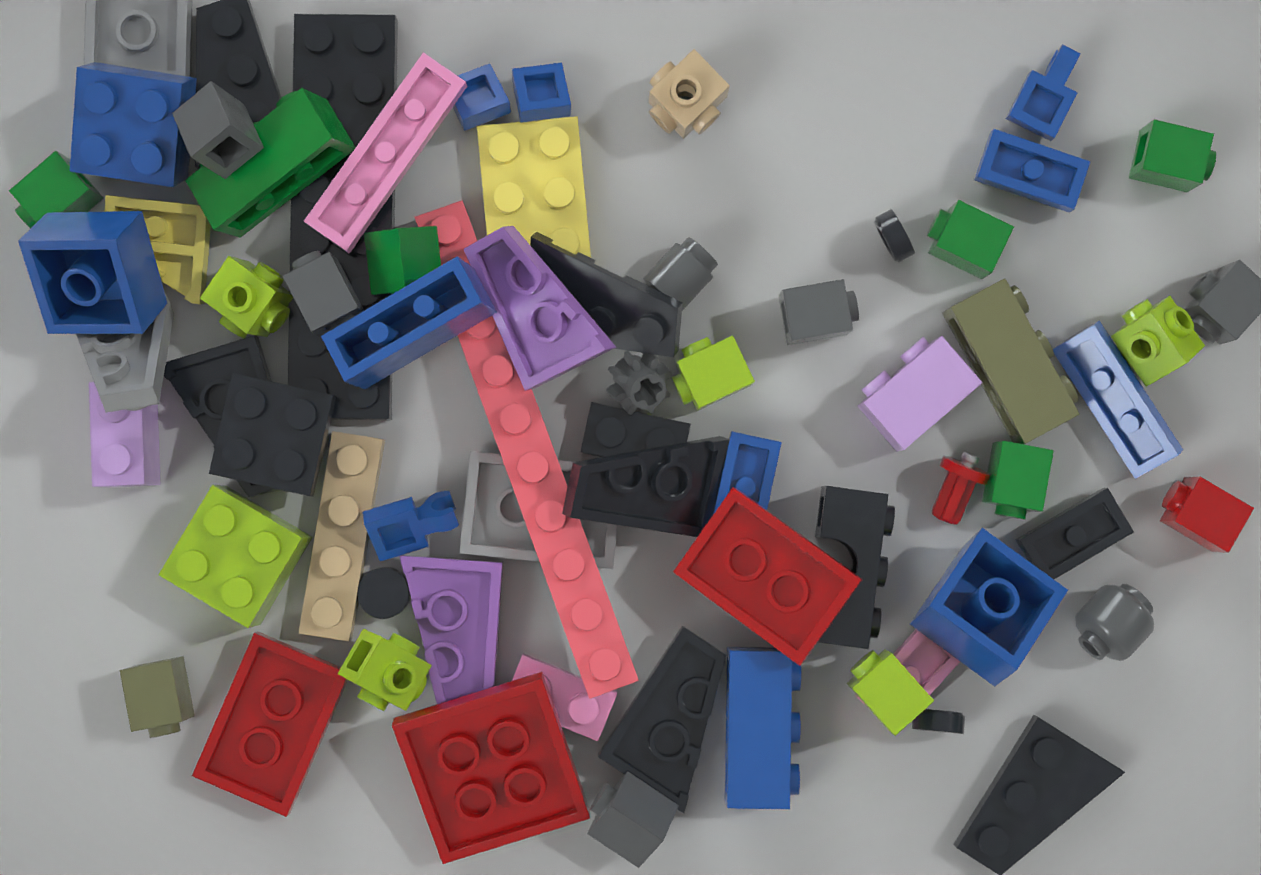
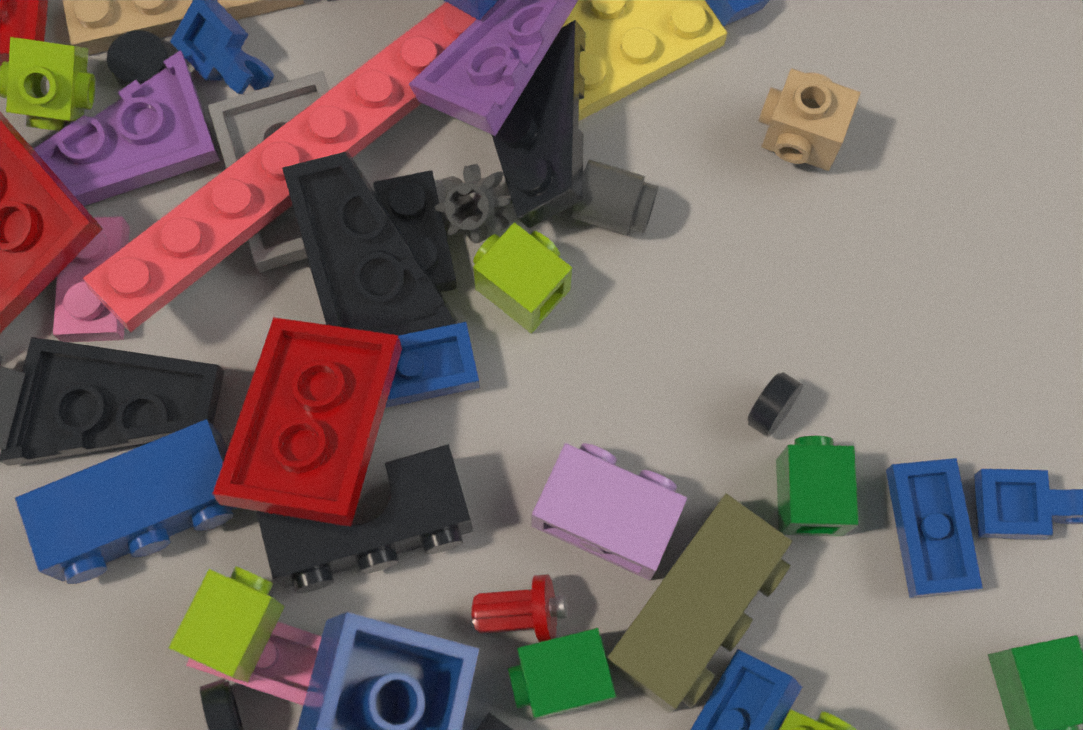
camera: 65 degrees right, 15 degrees down
(818, 311) = (645, 351): dark grey brick -> none

